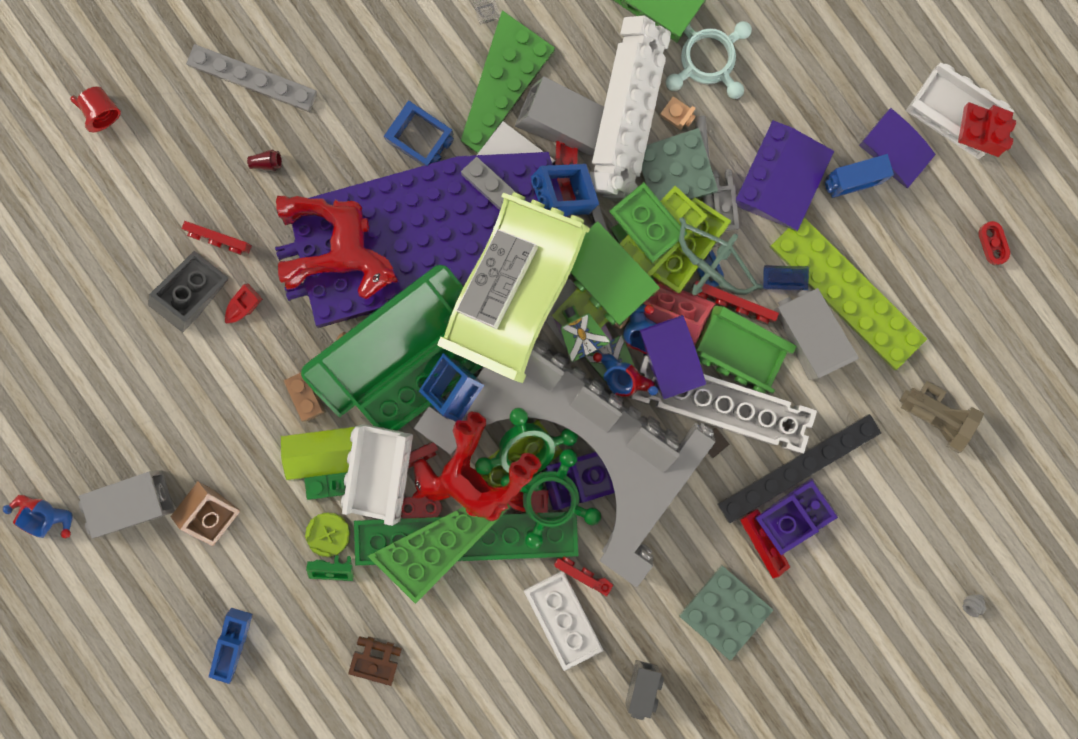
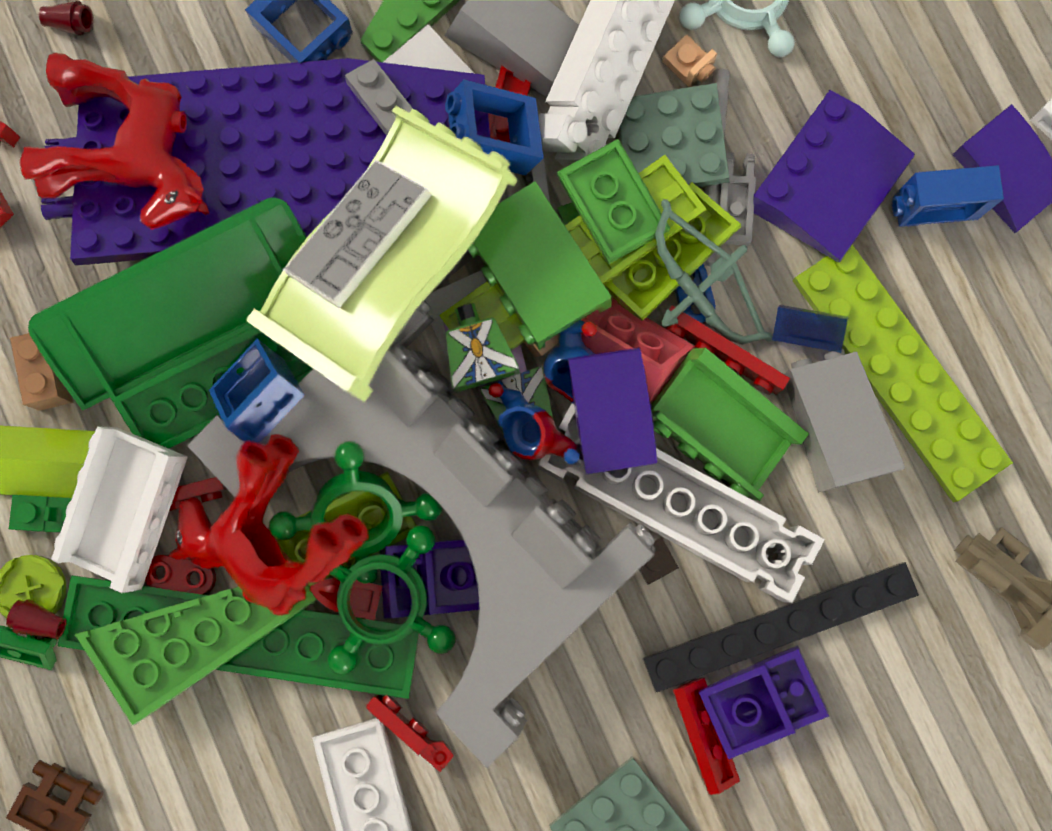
camera: 10 degrees right, 5 degrees down
(339, 552) = (33, 619): none -> dark red cone

